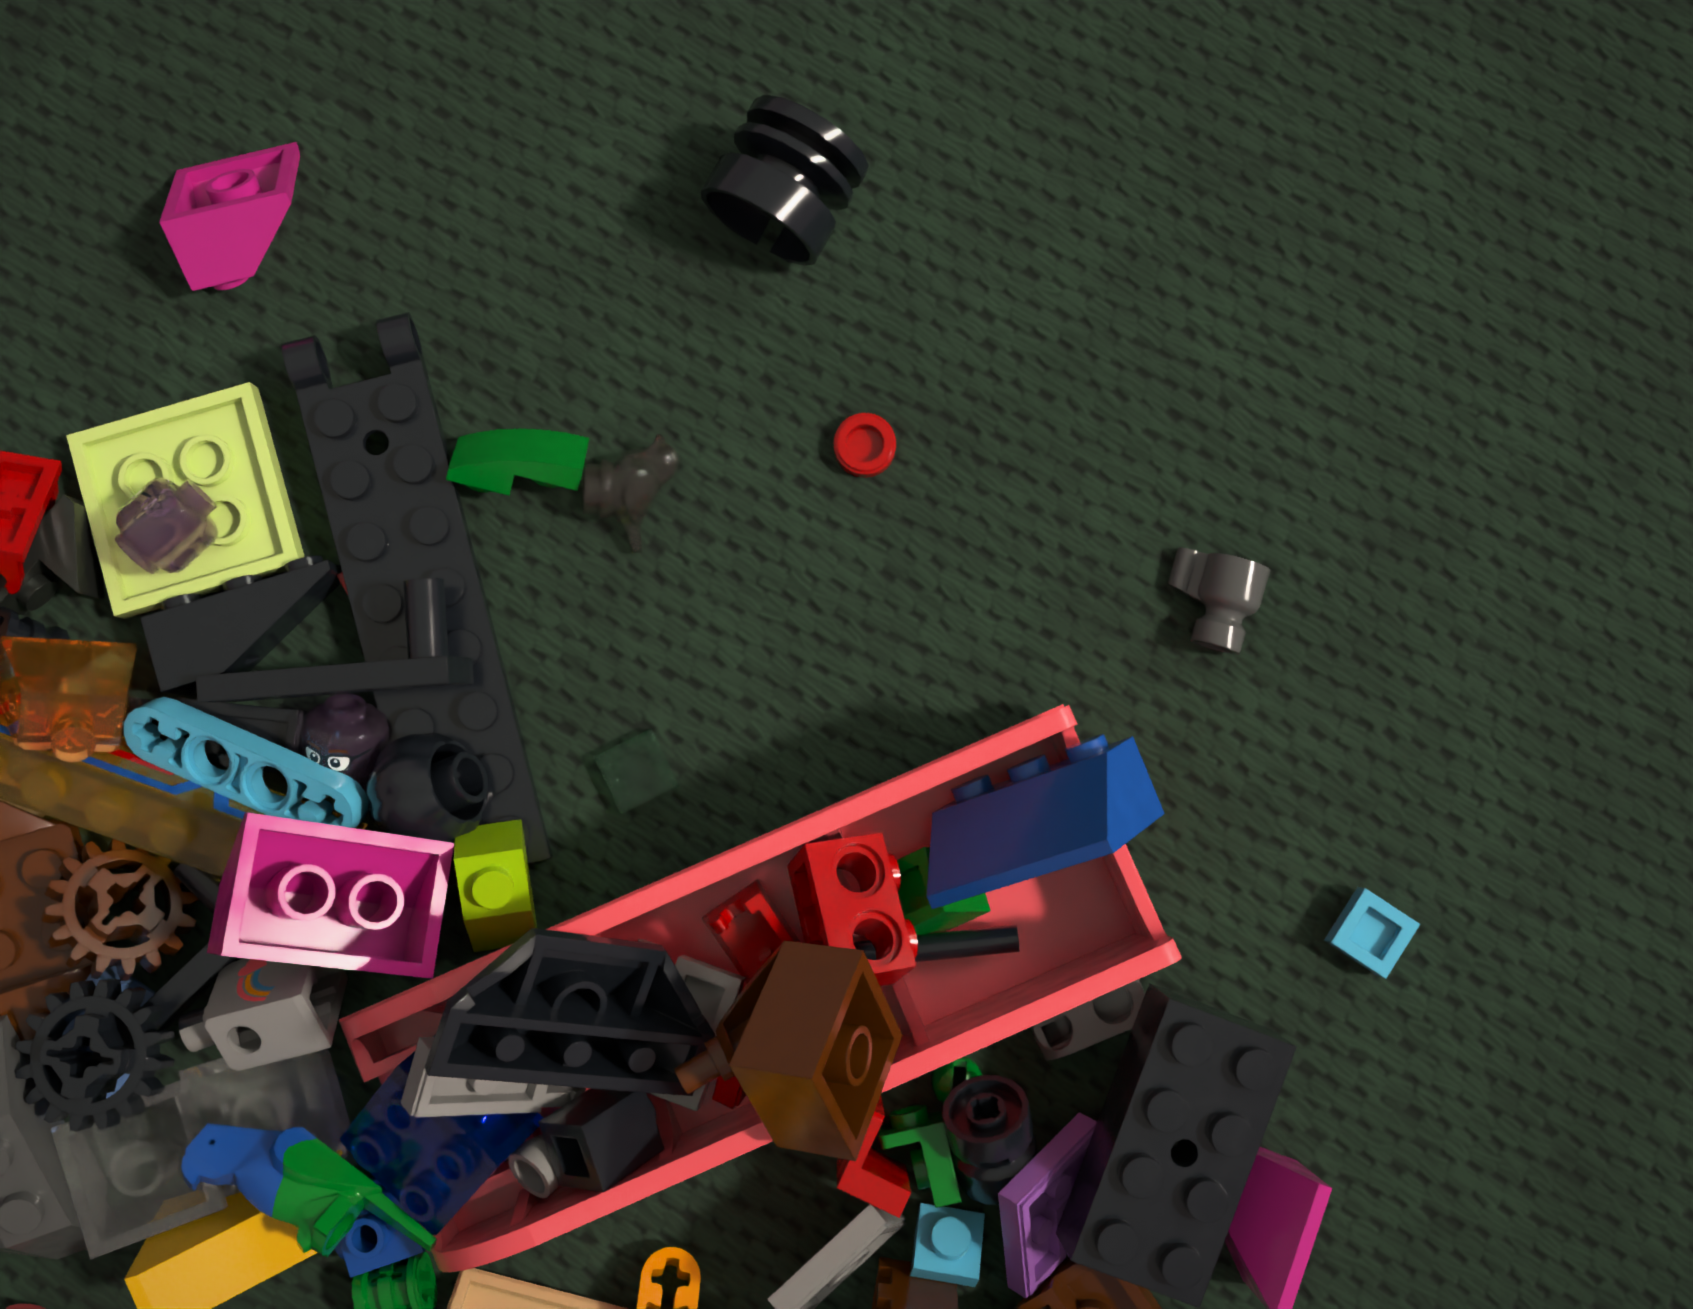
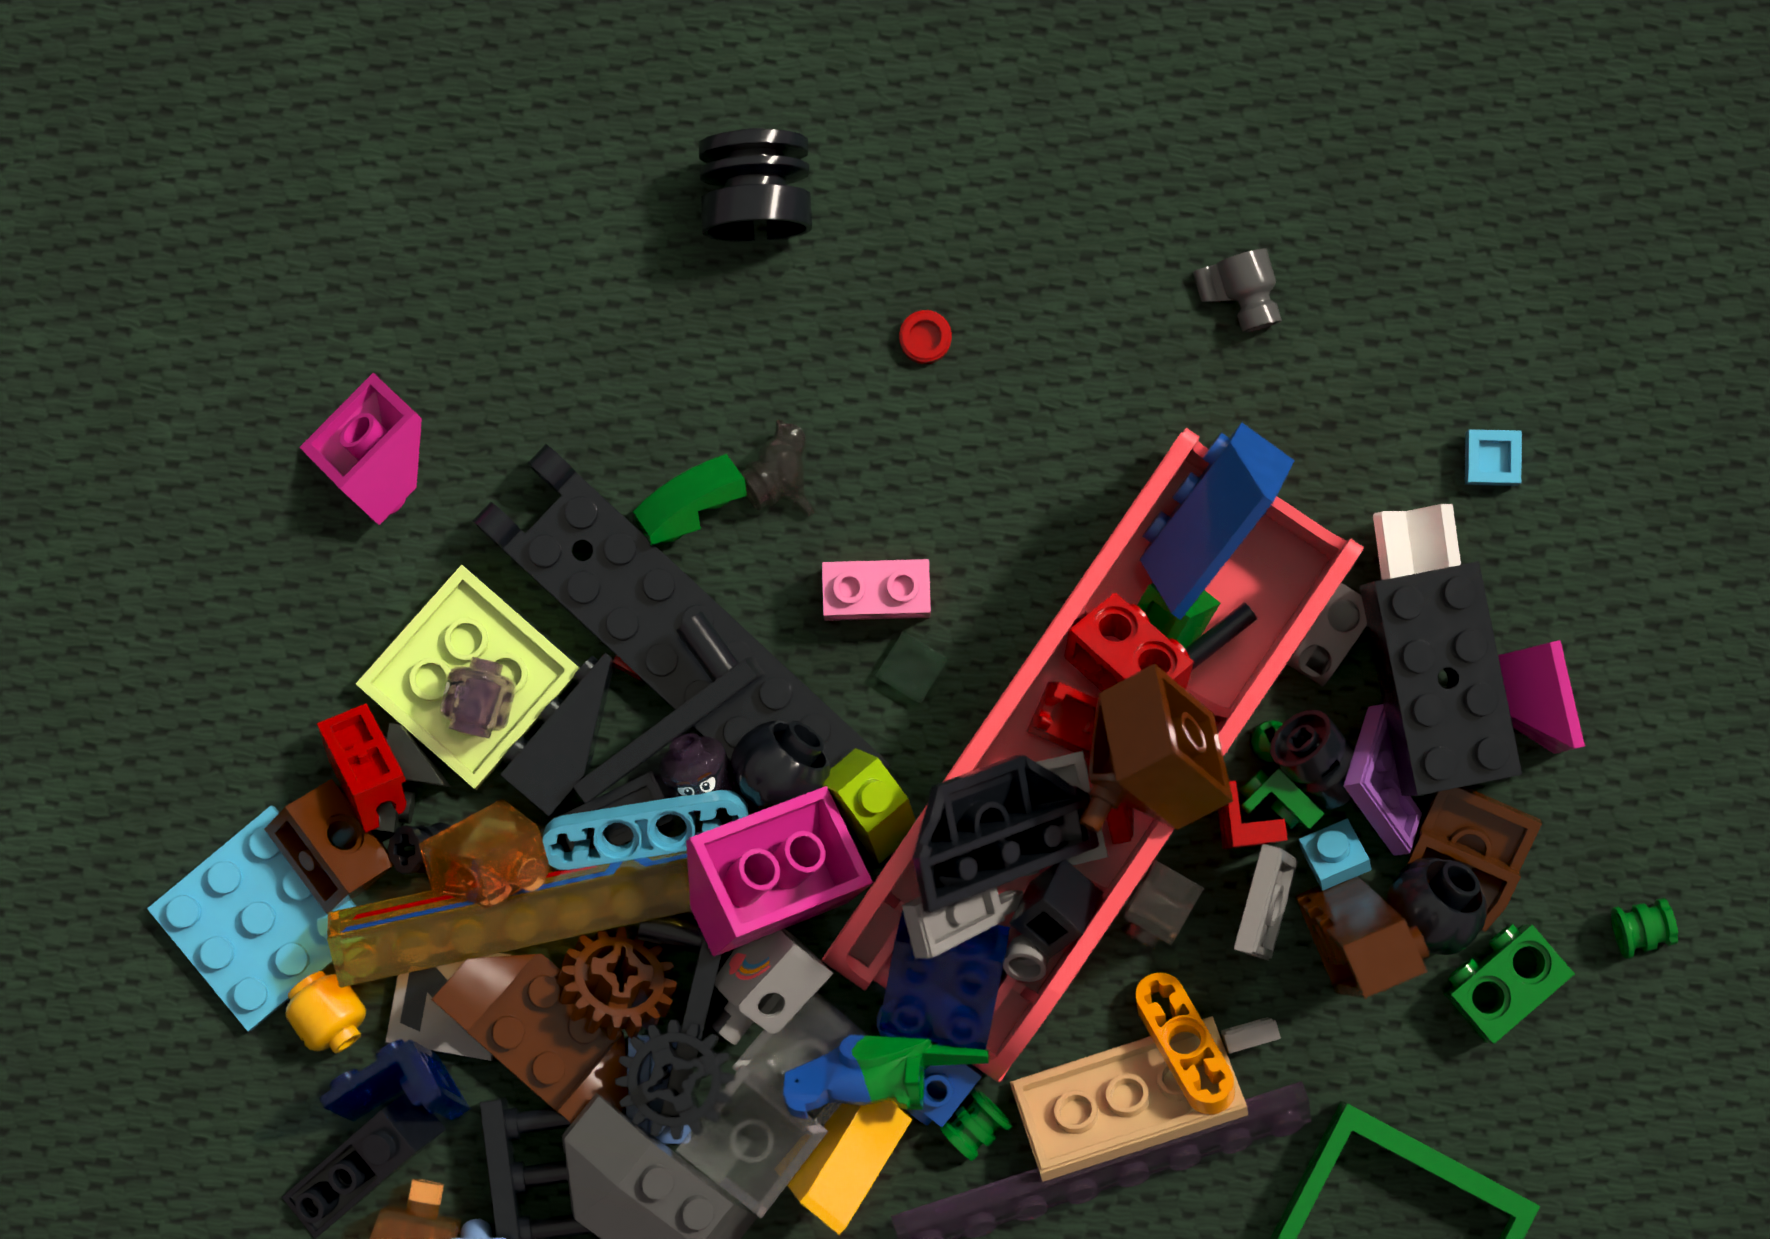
camera: 30 degrees left, 0 degrees up
(646, 668) = (876, 589): none -> bright pink brick
(726, 1199) = (1159, 905): none -> clear smoke brick
(1237, 972) = (1416, 540): none -> white panel

